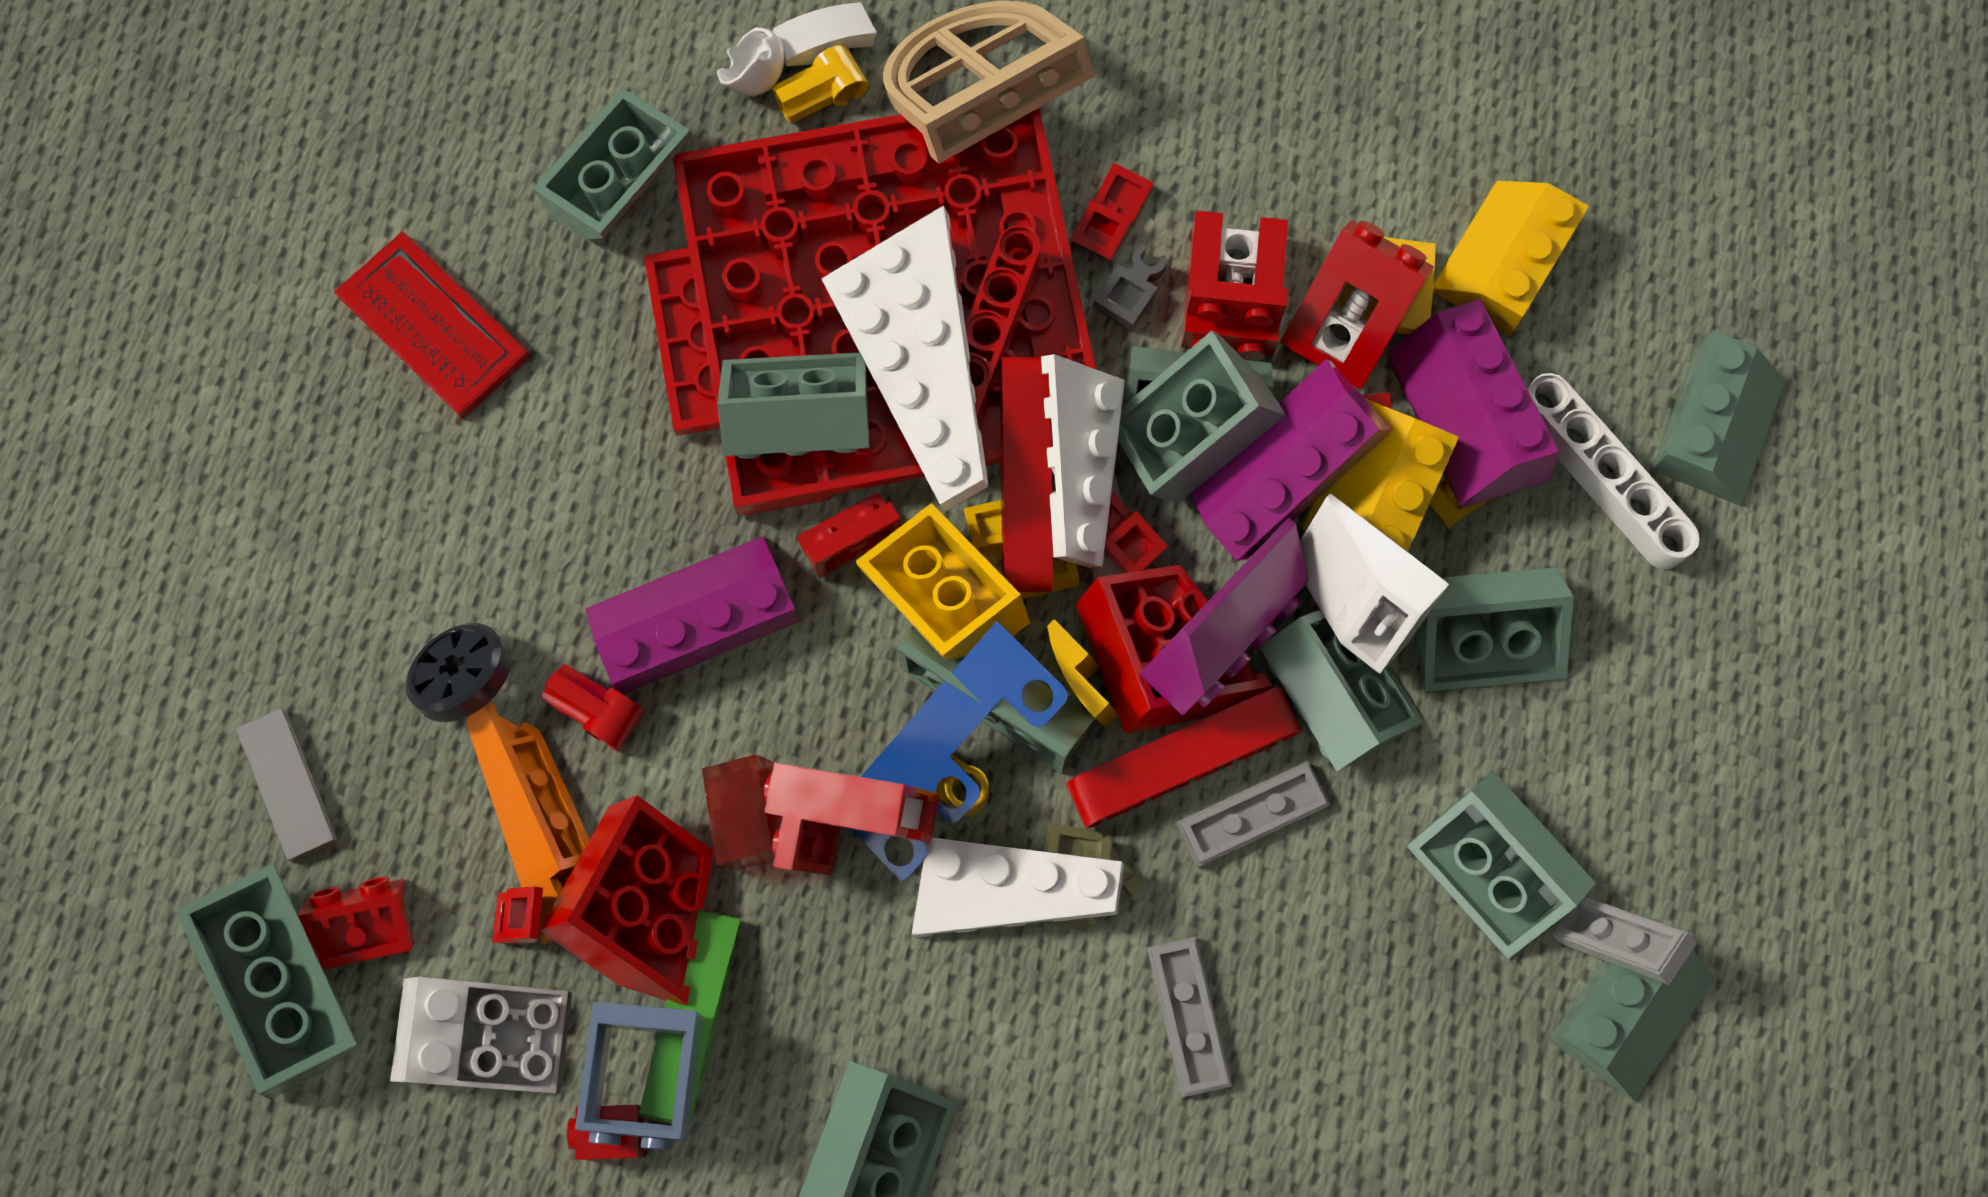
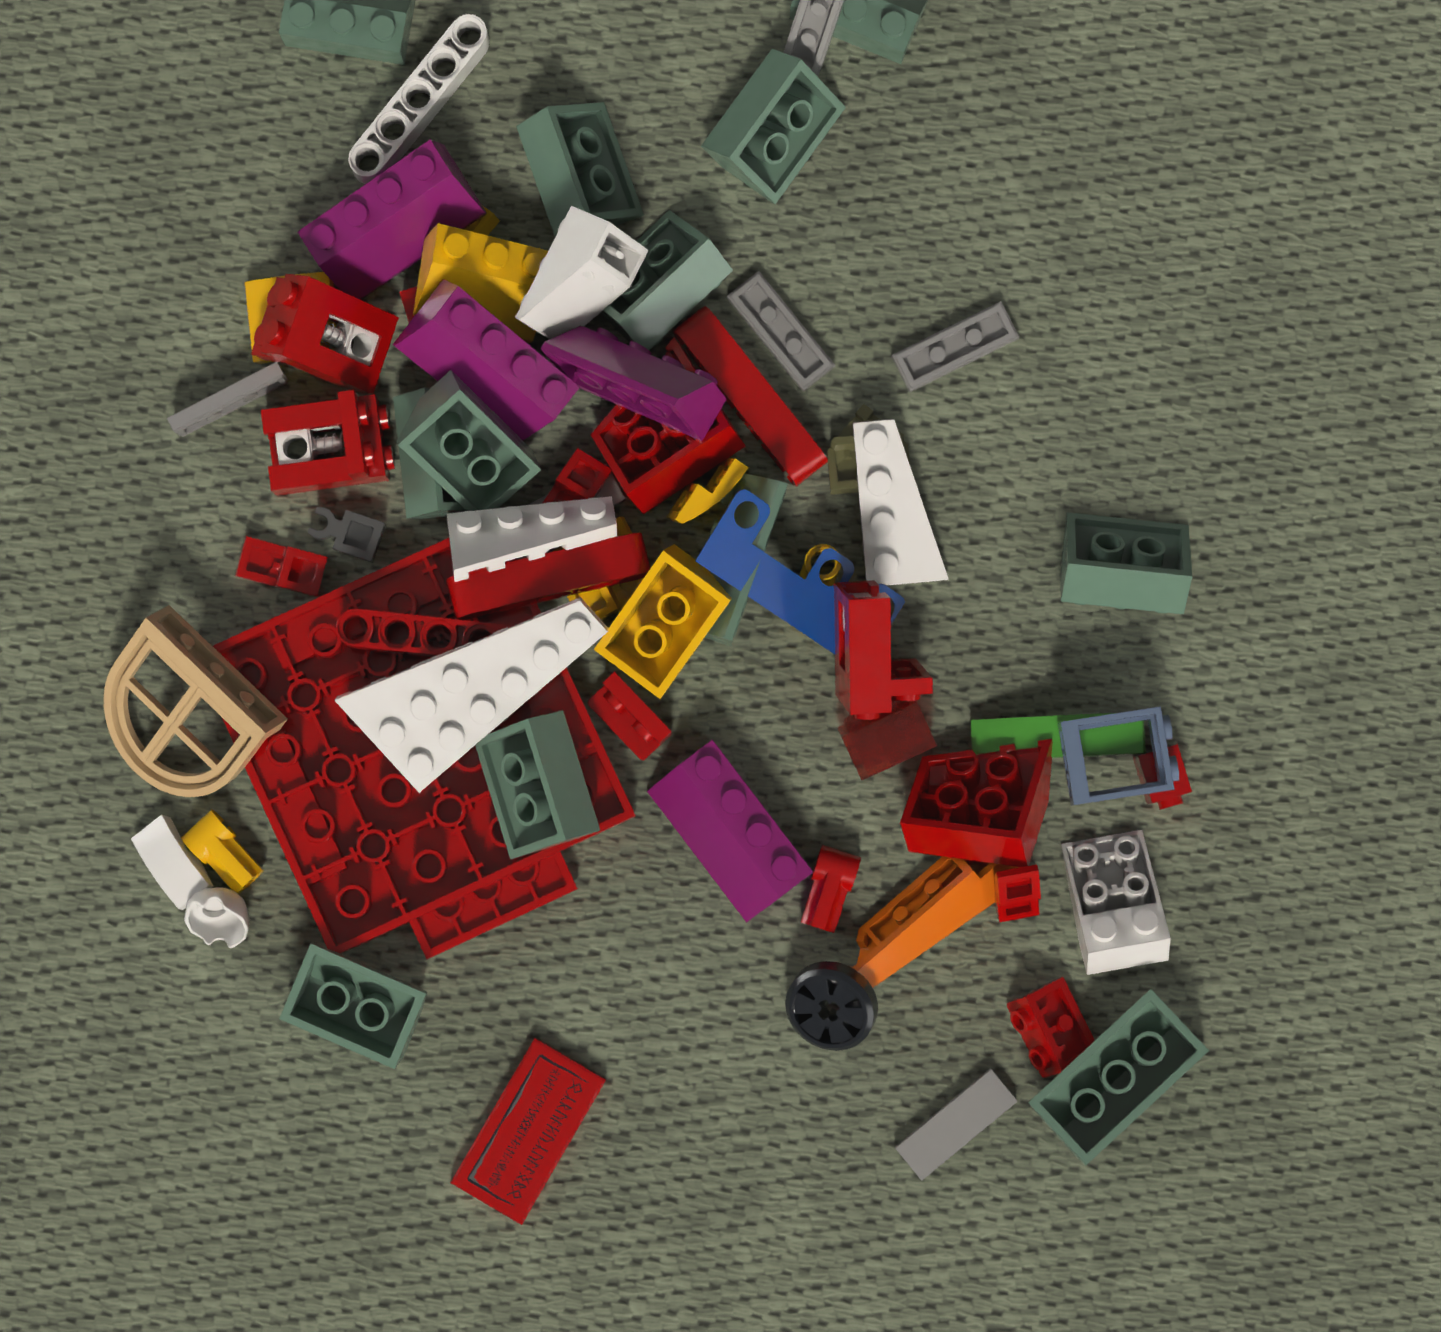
camera: 105 degrees left, 10 degrees up
(1306, 194) = (228, 400): none -> light grey tile
(1510, 249) = (237, 217): yellow slope -> none

